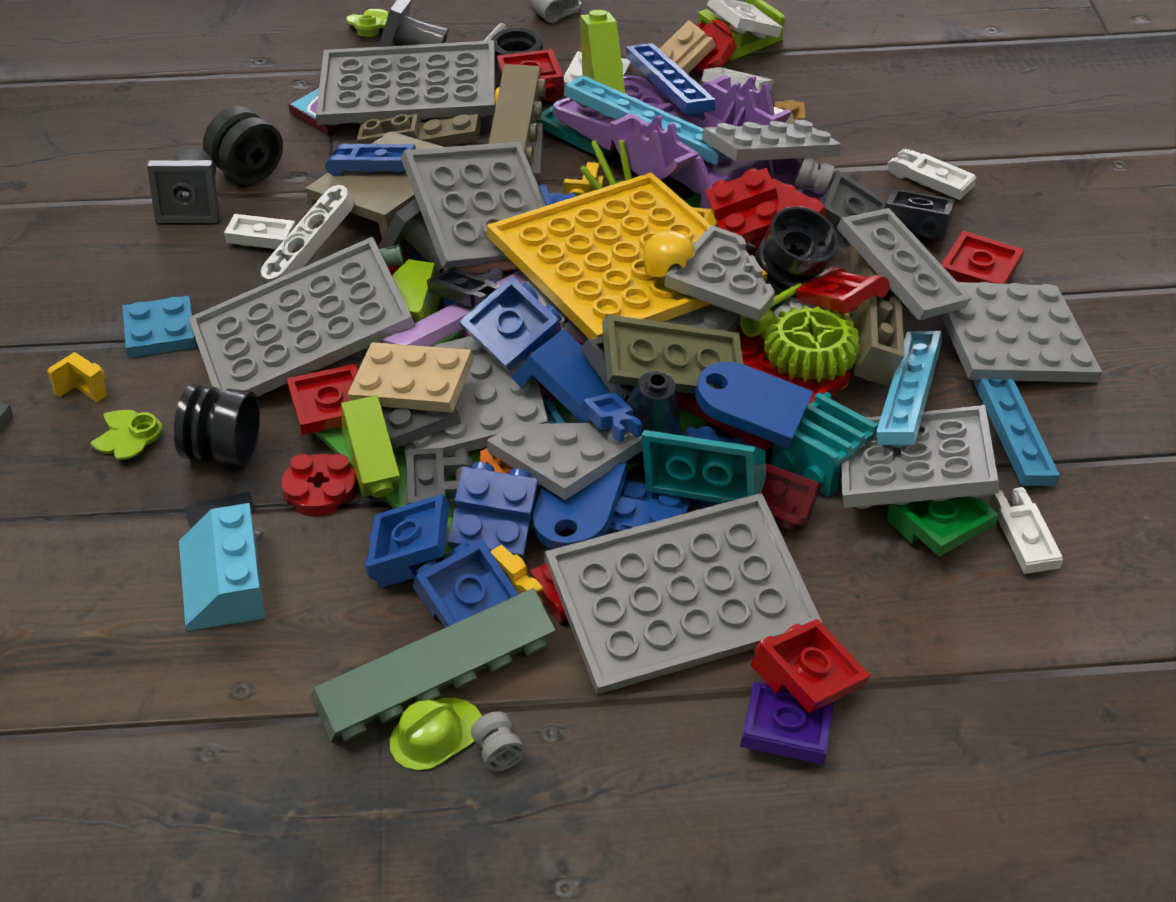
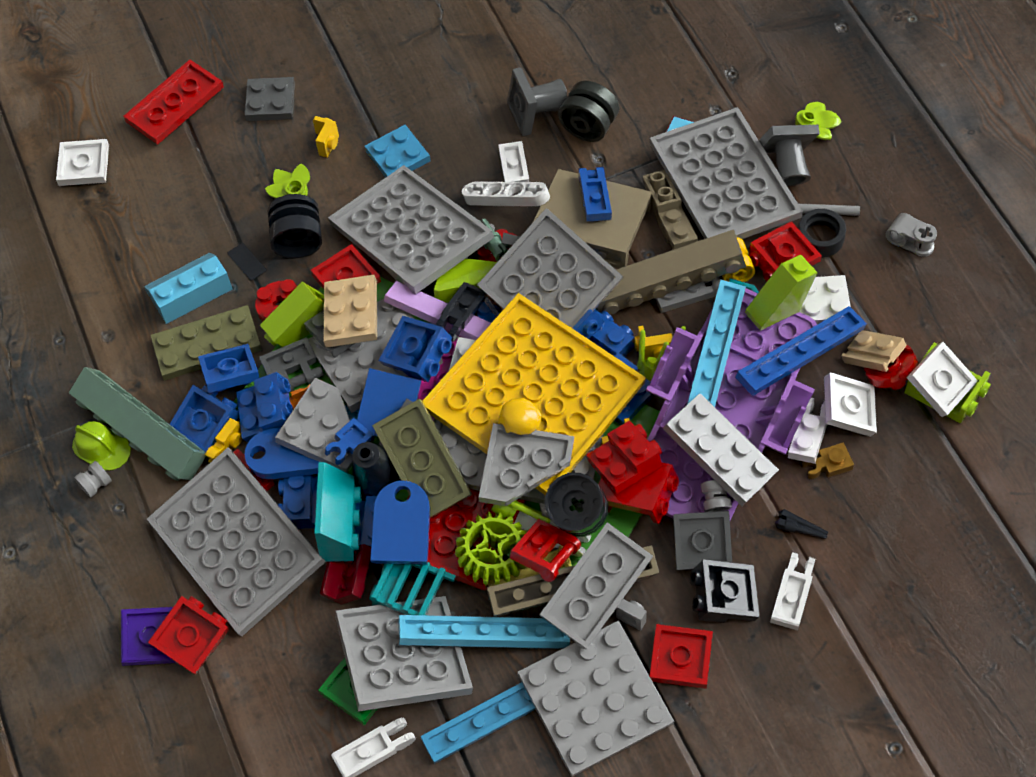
camera: 75 degrees right, 15 degrees up
(329, 577) = (180, 346): none -> olive plate
(853, 157) = (794, 523): none -> black piece

